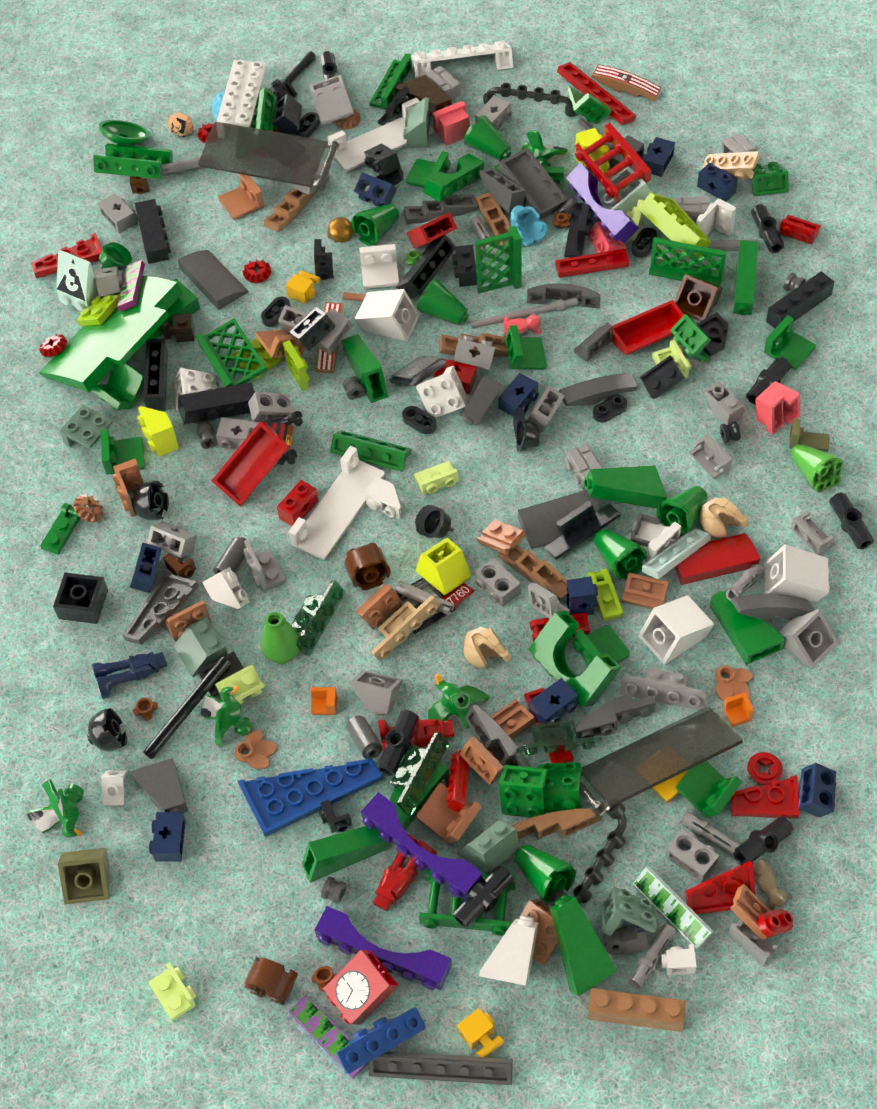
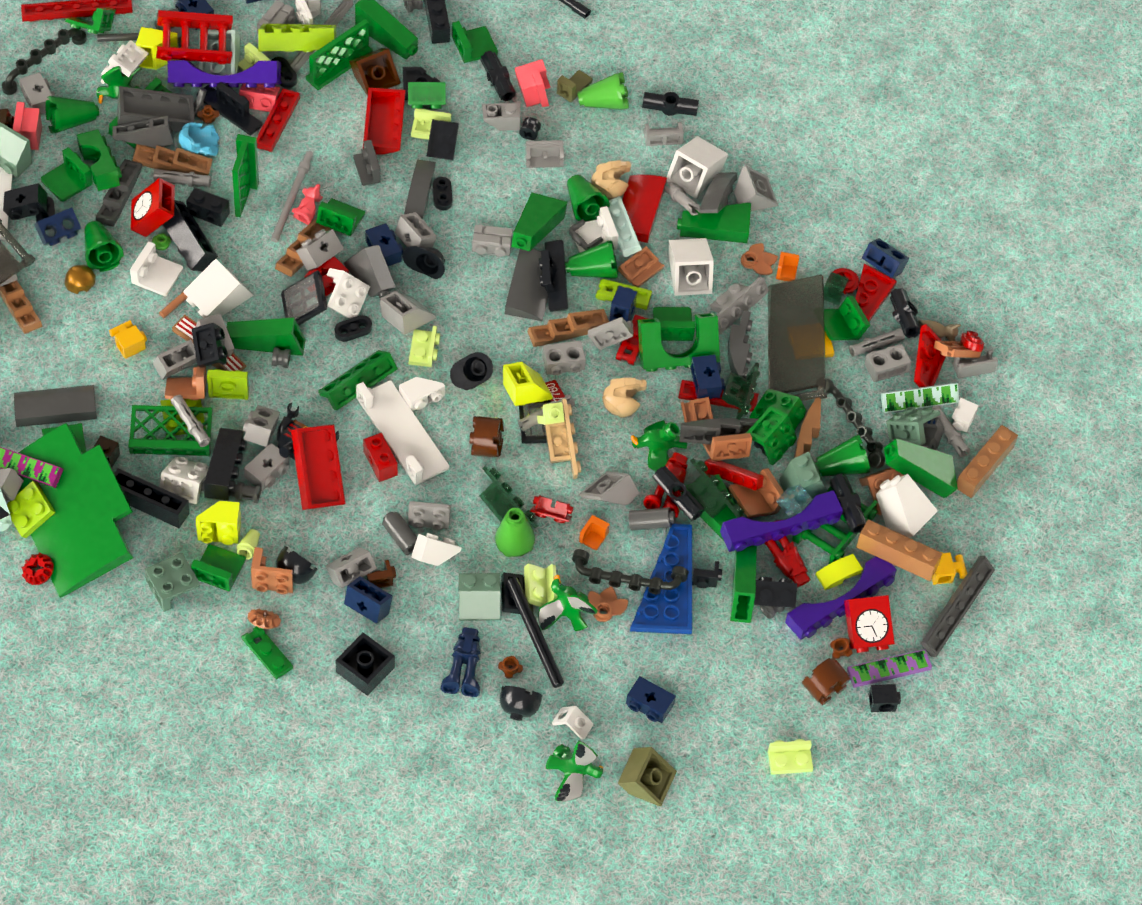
camera: 70 degrees left, 0 degrees up
(121, 387) = (142, 530): green bracket -> none
(156, 462) = (248, 544): none -> yellowish green cone
(160, 605) = (414, 610): dark grey wing -> none
(162, 785) = (601, 684): dark grey slope -> none
(179, 622) = (444, 594): nougat bracket -> none
(236, 363) = (194, 426): none -> light grey pin
(263, 273) = (77, 373): red gear -> none
(274, 311) = (141, 375): black plate -> none
(285, 758) = (635, 581): none -> pearl dark grey bar
(286, 1046) = (884, 698): none -> black brick
(323, 261) = (116, 308): black bracket -> none
(326, 660) = (559, 512): none -> red hinge
(343, 881) = (775, 593): none -> black bracket
(379, 606) = (530, 448): nougat bracket -> none
(379, 1039) = (916, 630): blue bracket -> none
(412, 597) = (552, 414): none -> yellowish green bracket
(412, 932) = (838, 571): none -> neon yellow slope
(442, 304) = (239, 246): green cone -> none
(449, 843) = (794, 500): none -> clear light blue brick
(455, 971) = (899, 550): none -> medium nougat brick
(459, 443) = (404, 312): none -> light grey slope
(501, 537) = (521, 332): plate -> none
(558, 137) = (128, 58): none -> white bracket
(563, 291) = (311, 143): dark grey slope -> none
(744, 760) = (835, 288): none -> clear green bracket

